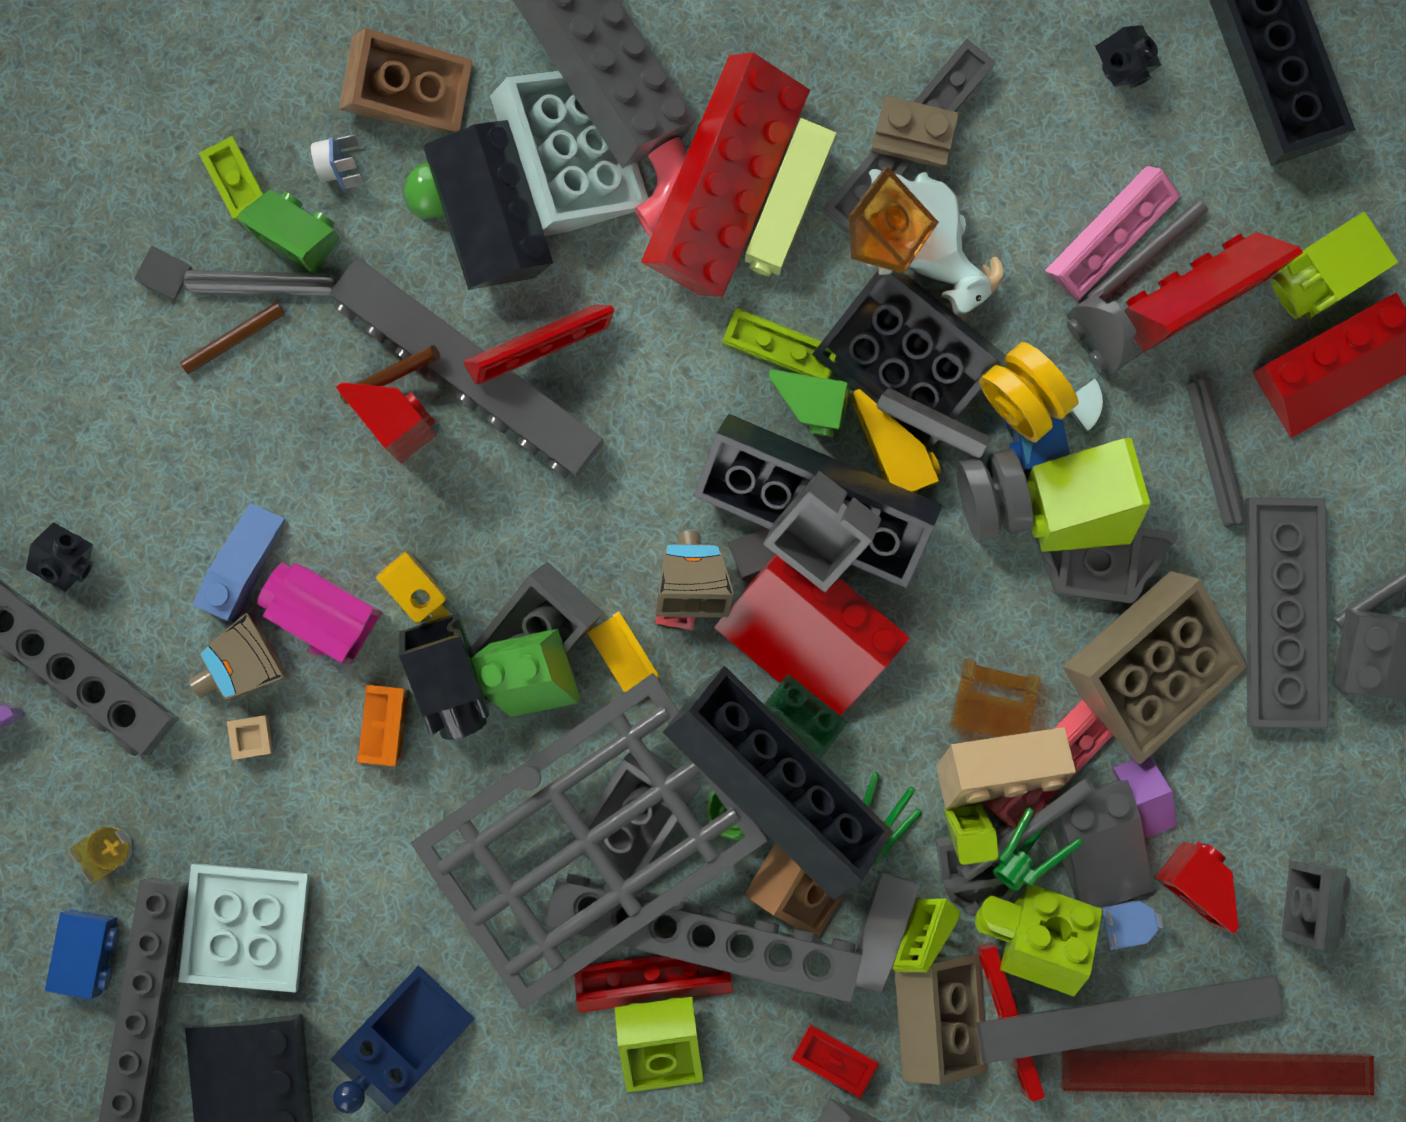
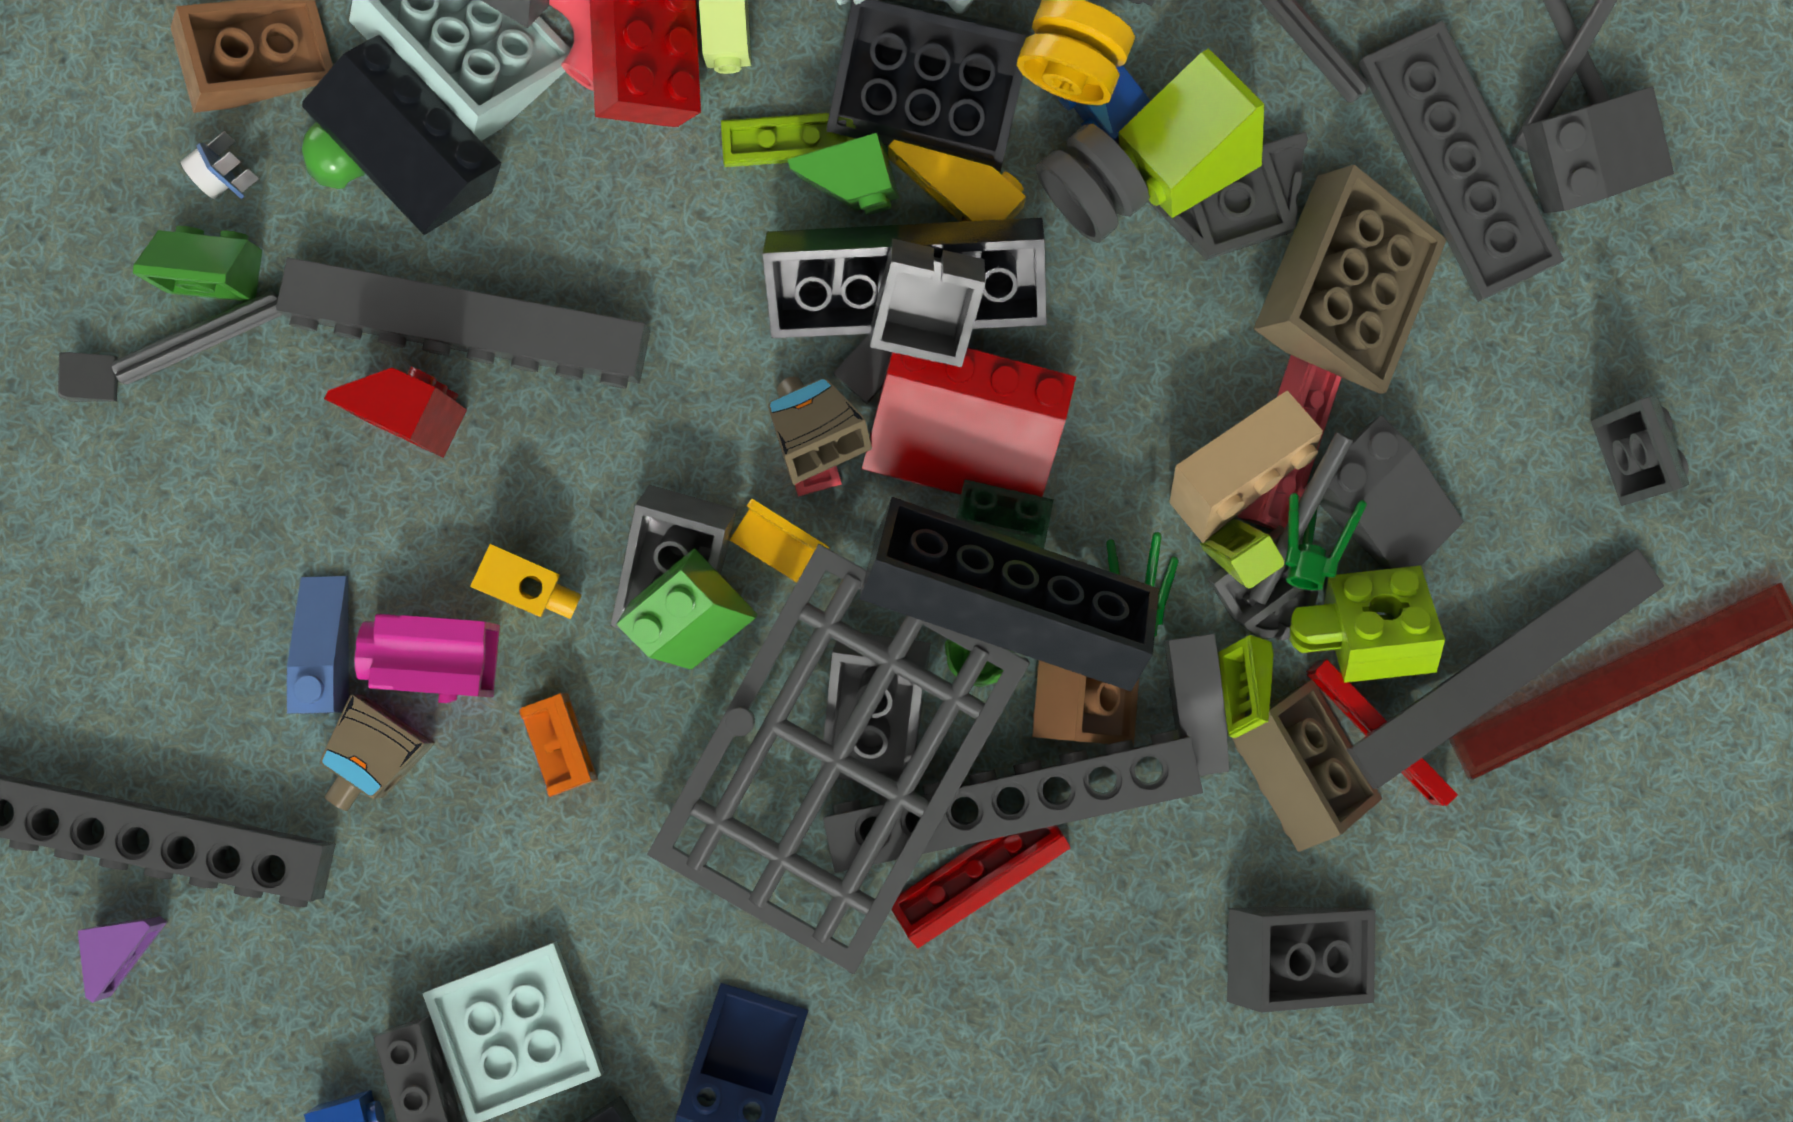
camera: 15 degrees left, 0 degrees up
(60, 557) = (121, 732): black brick -> none
(102, 852) = (320, 1027): clear yellow piece -> none
(231, 175) = (109, 236): lime plate -> none
(232, 338) = (197, 411): reddish brown bar -> none
(250, 737) = (421, 826): tan plate -> none
(401, 368) = (395, 349): reddish brown bar -> none
(444, 677) = (597, 660): black piece -> none
(538, 343) = (528, 256): red slope -> none
(658, 1044) = (1018, 940): lime slope -> none
(834, 1060) = (1214, 866): red plate -> none
(933, 422) = (989, 137): dark grey tile -> none
(991, 713) = (1200, 417): clear orange plate -> none
(1089, 405) = (1147, 46): light aqua tile -> none
(1130, 924) = (1458, 568): medium blue piece -> none
(1151, 795) = (1413, 418): medium lavender slope -> none
(1203, 883) = (1514, 487): red slope -> none

